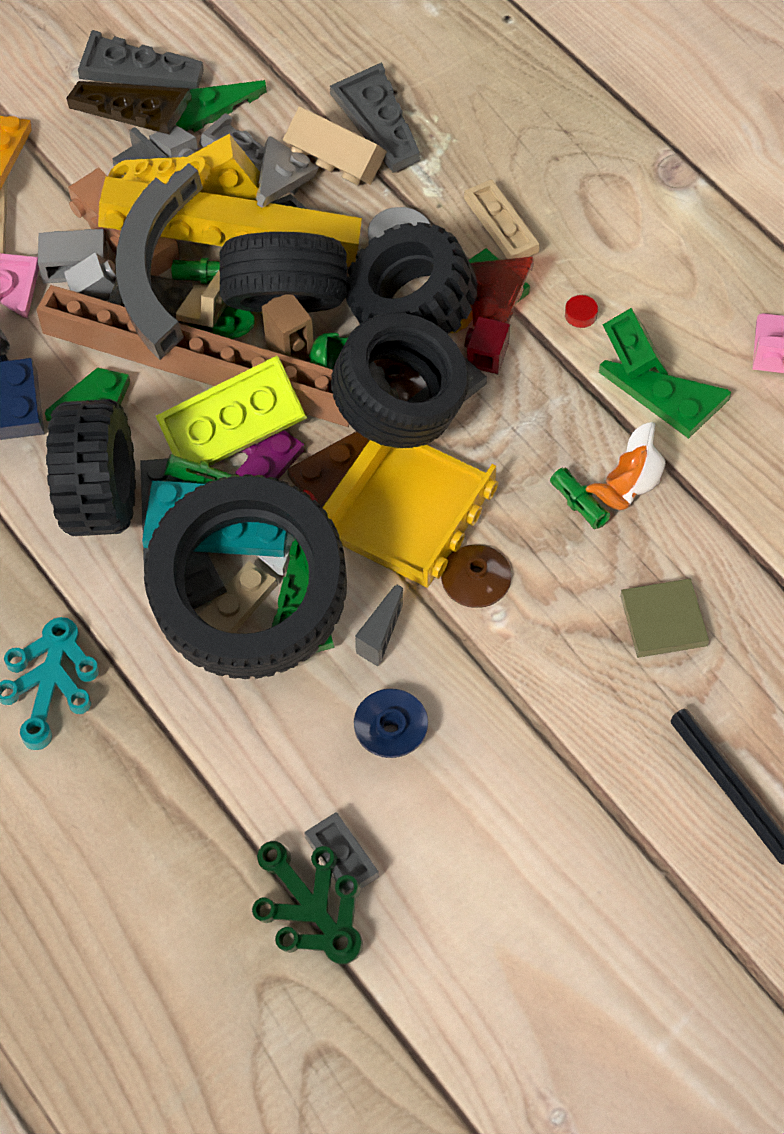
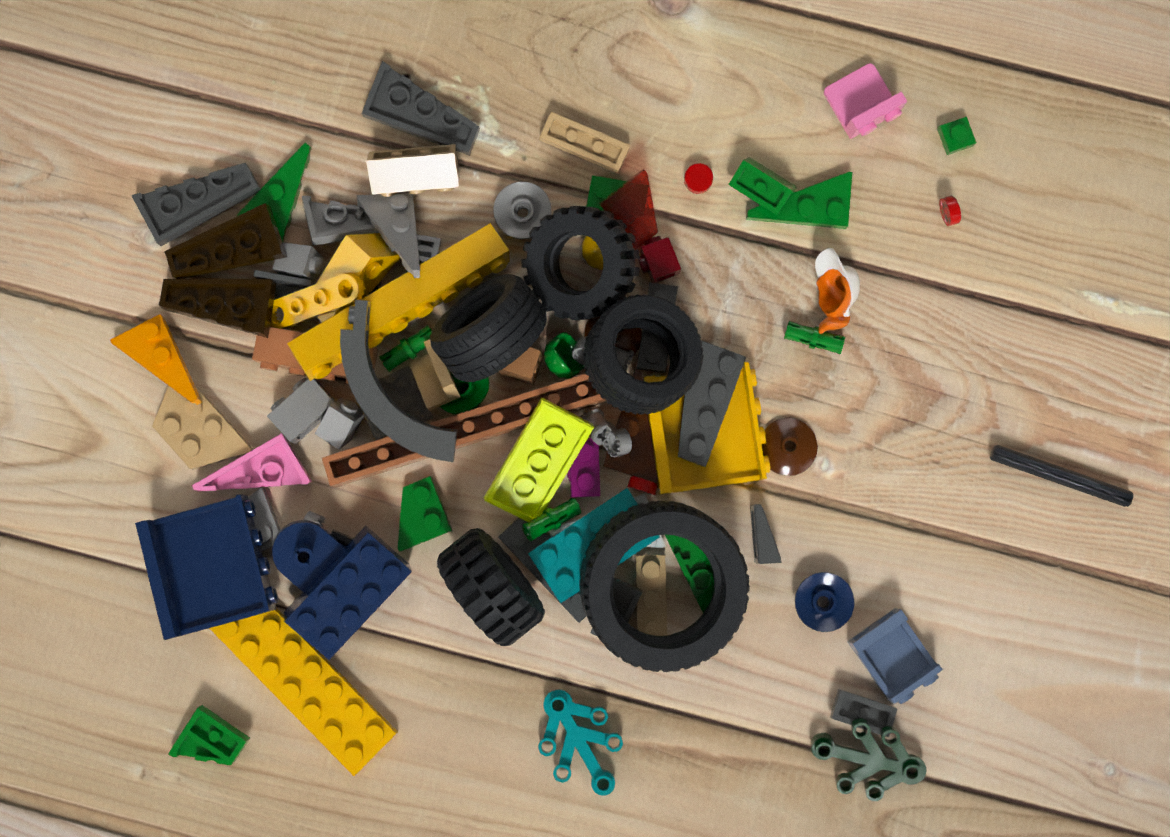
camera: 35 degrees left, 25 degrees up
(86, 137) = (225, 302): none -> dark brown wing
(317, 444) = (605, 433): none -> light grey connector
(419, 823) = (895, 657): none -> sand blue panel
(430, 477) = (708, 402): none -> dark grey wing
(664, 618) = (933, 386): olive tile -> none

